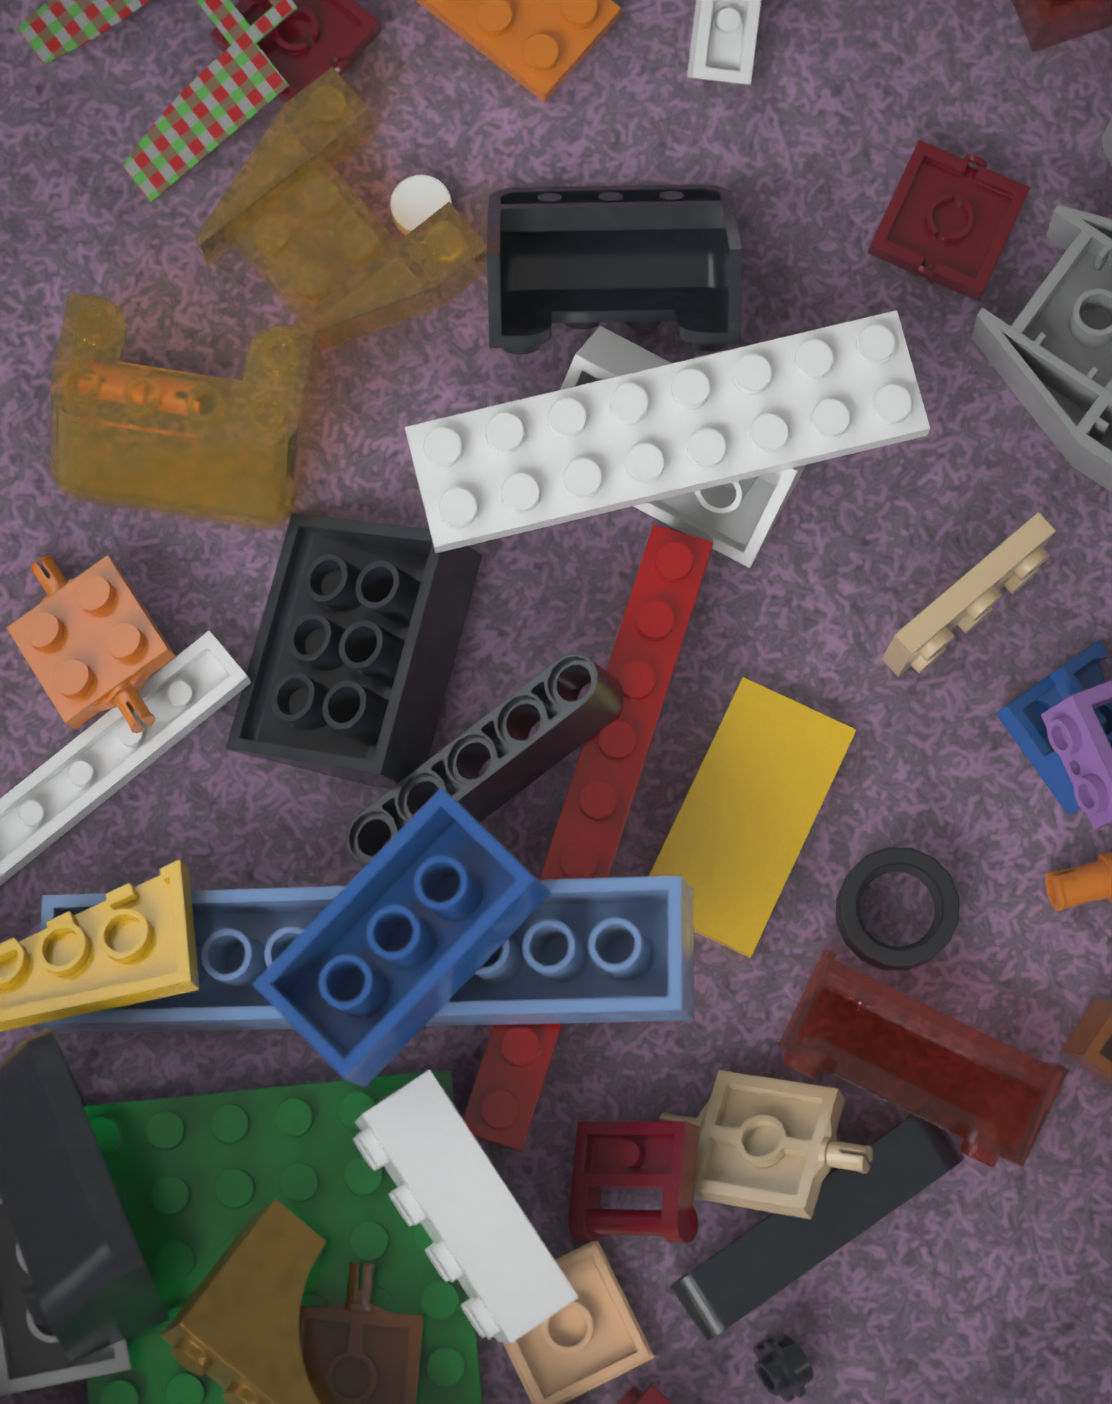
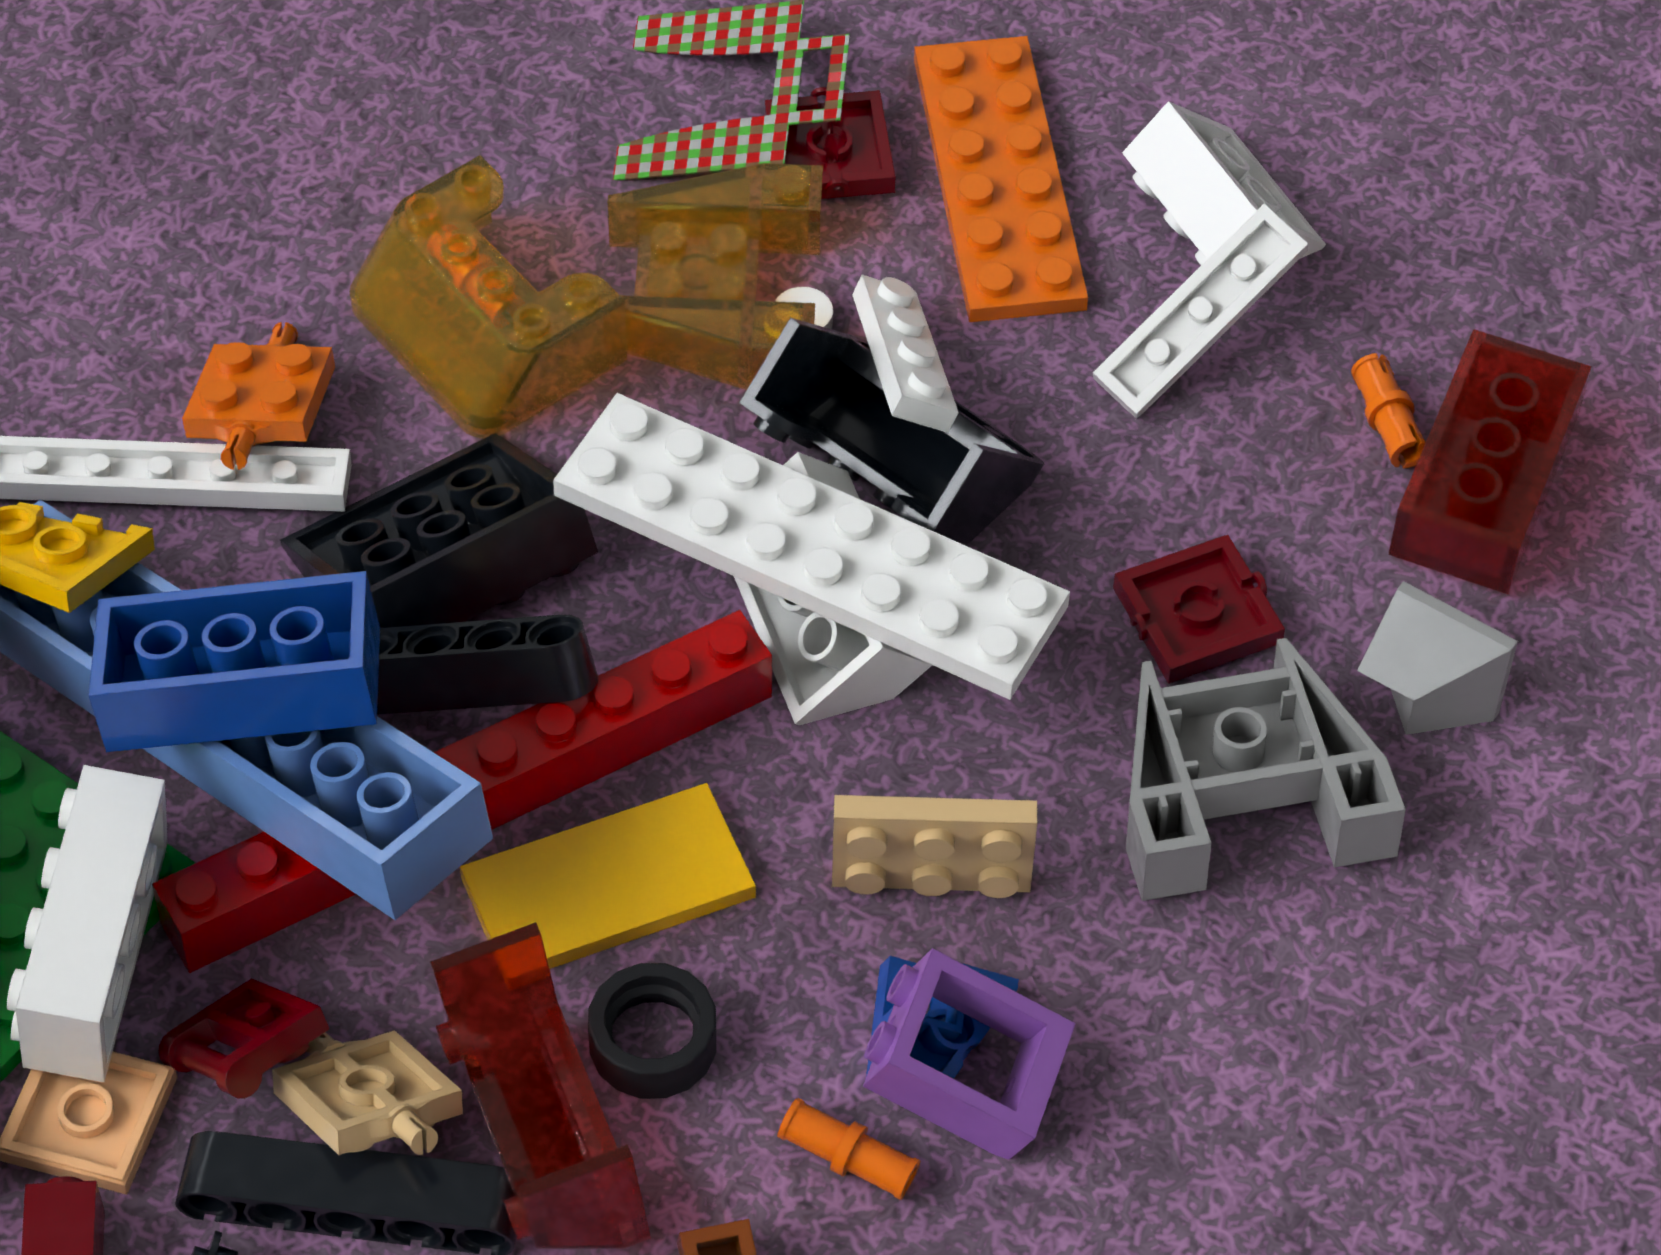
camera: 40 degrees right, 25 degrees down
(555, 188) = (904, 353): none -> white plate

